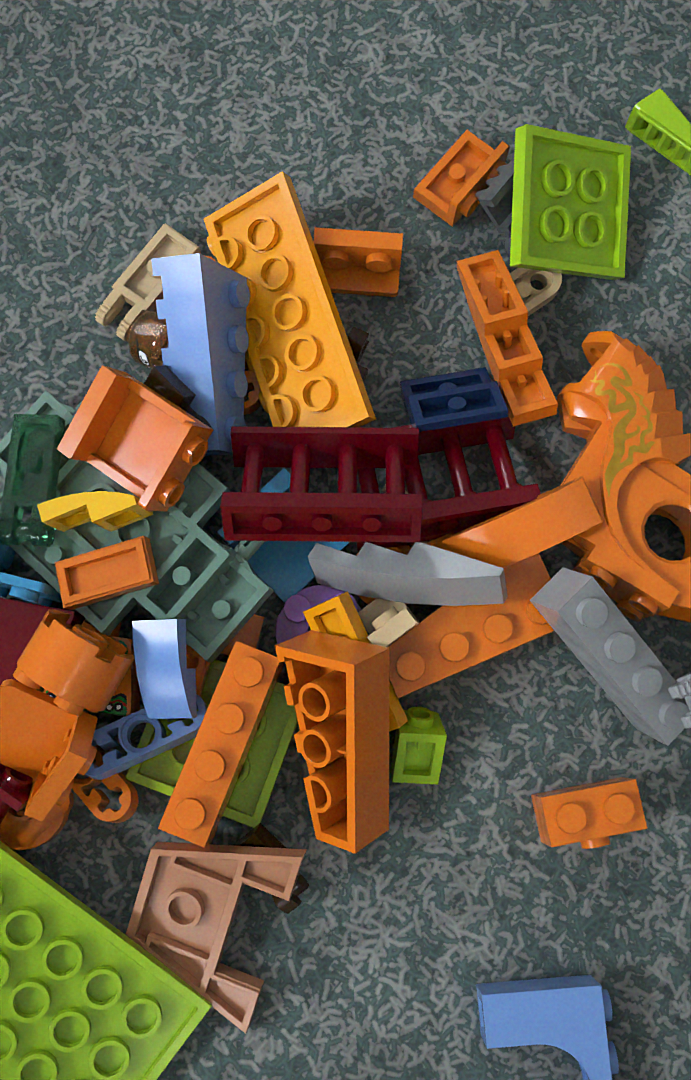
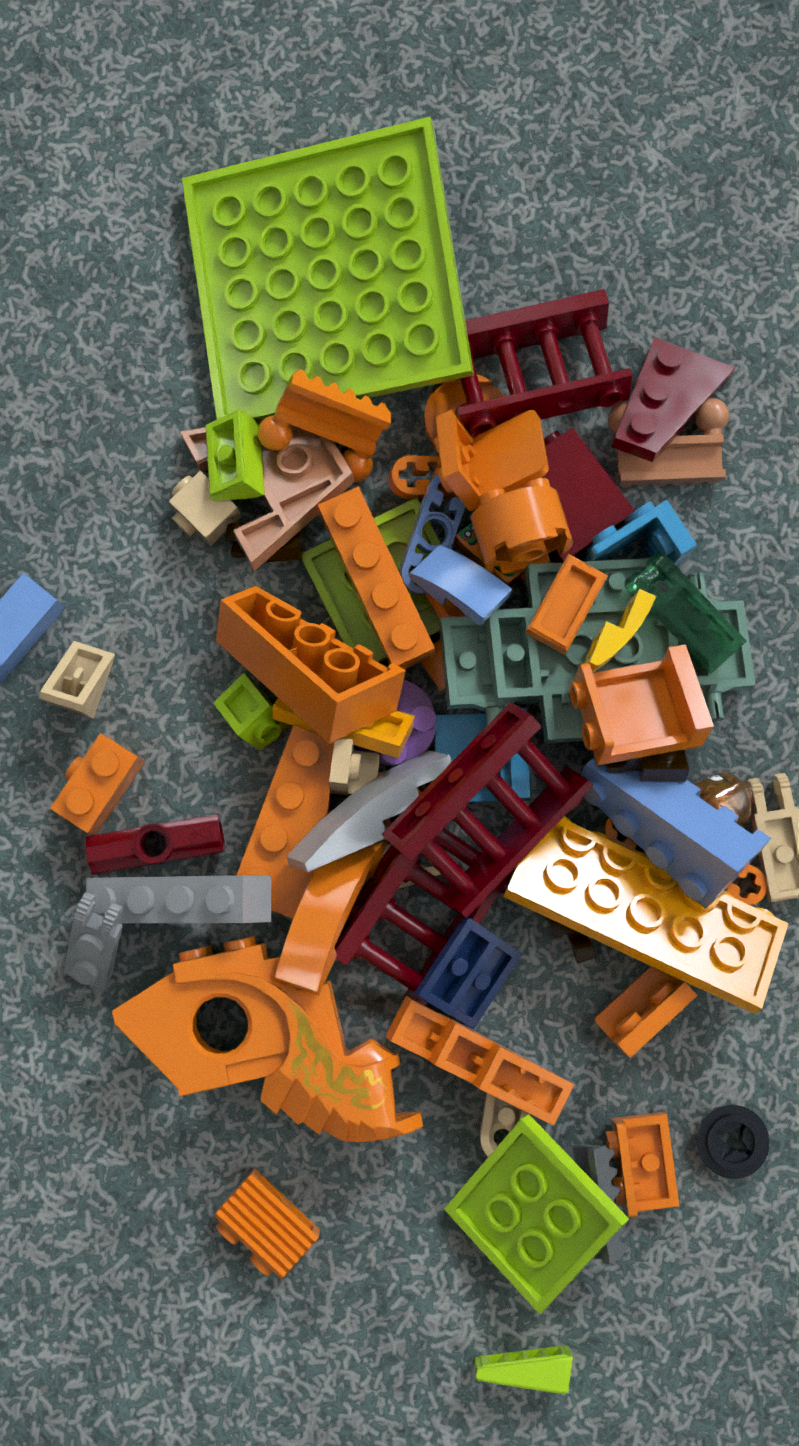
camera: 135 degrees right, 5 degrees up
(118, 916) = (329, 415): none -> orange gear
(226, 962) = (234, 458): none -> lime slope
(292, 949) = (198, 512): none -> tan brick
(402, 126) = (736, 1162): none -> black gear
(524, 911) = (78, 679): none -> tan slope
(610, 738) = (127, 847): none -> dark red piece

